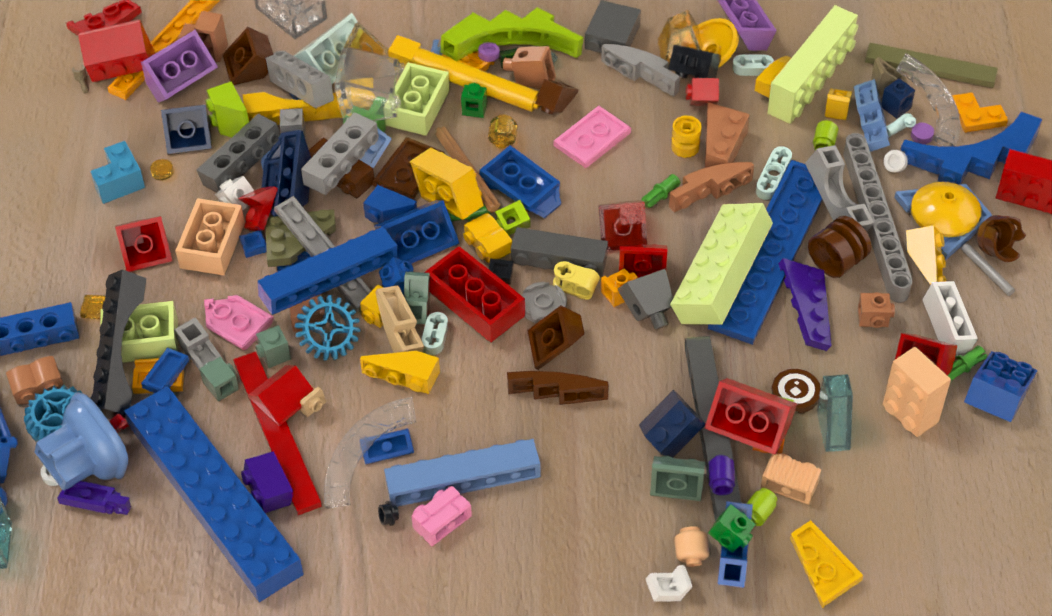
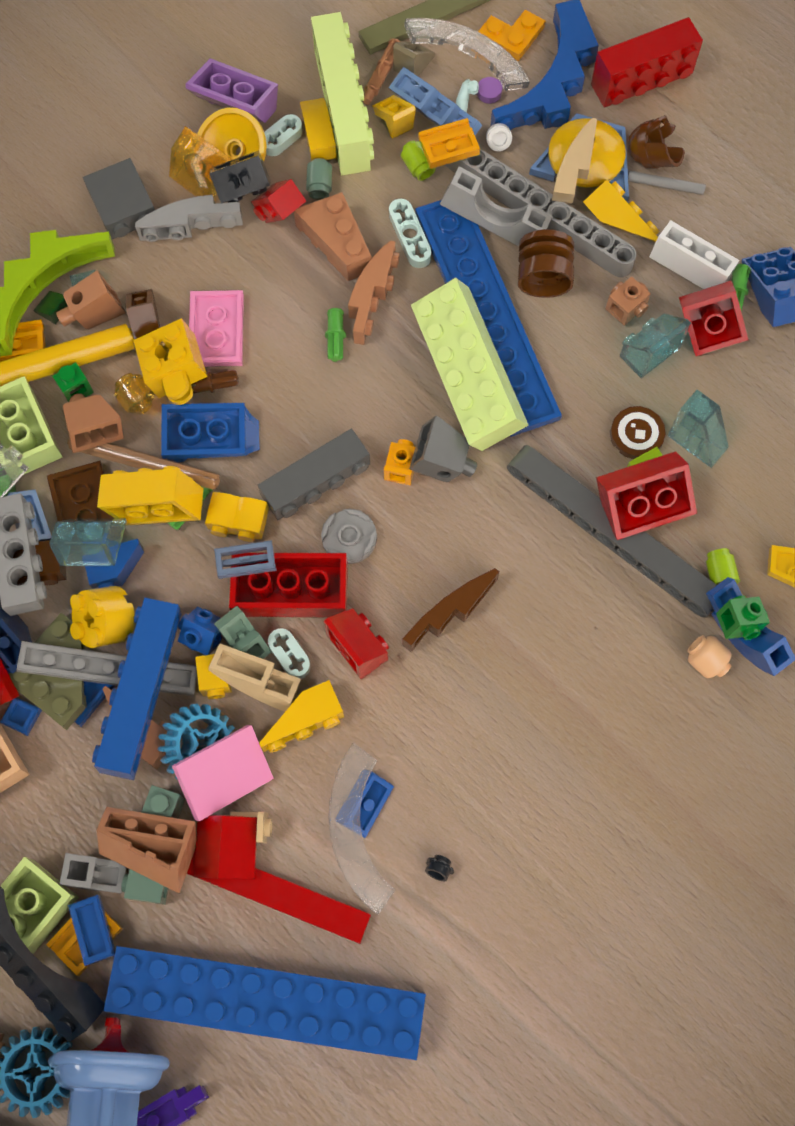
camera: 45 degrees left, 20 degrees up
(236, 320) = (82, 805): bright pink tile -> none
(243, 351) = (148, 844): none -> nougat wedge
(267, 482) = (308, 946): dark purple brick -> none
(324, 352) = (222, 772): none -> bright pink tile
(349, 220) = (101, 616): none -> yellow brick
(386, 177) = (87, 541): none -> clear light blue slope
(421, 231) = (168, 565): blue slope -> none
(441, 515) = (486, 826): bright pink brick -> none
(458, 125) = (91, 422): none -> nougat torso
(458, 255) = (245, 570): none -> sand blue tile
(463, 471) = (460, 769): medium blue brick -> none
(478, 353) = (356, 642): none -> red slope
(488, 52) = (31, 319): medium lavender tile -> none
(502, 269) = (283, 538): black plate -> none
(513, 212) = (244, 469): lime brick -> none
(542, 127) = (171, 365): none -> yellow brick
(554, 335) = (401, 564): reddish brown slope -> none
(555, 160) = (216, 381): none -> reddish brown axle
(577, 280) = (361, 488): light yellow piece -> none
(623, 224) = (342, 396): clear red slope -> none
(643, 258) = (403, 416): red slope -> none
(669, 585) = (728, 708): white bracket -> none
(671, 425) = (583, 560): dark blue slope -> none
(677, 478) = (636, 602): sand green slope -> none
(686, 136) = (304, 259): yellow wheel -> none
(721, 475) = (680, 573): dark purple brick -> none
(749, 101) = (319, 178): none -> sand green brick
(791, 478) = (719, 519): light nougat brick -> none
(810, 301) = (569, 338): dark purple wing -> none
(849, 134) = (449, 143): none -> light orange plate
(860, 74) = (383, 67): none -> nougat piece
(863, 348) = (654, 343): none -> clear light blue slope
(898, 98) = (441, 70): dark blue brick -> none
(916, 391) = (748, 354): light nougat brick -> none
(920, 199) = (575, 163): none -> tan slope

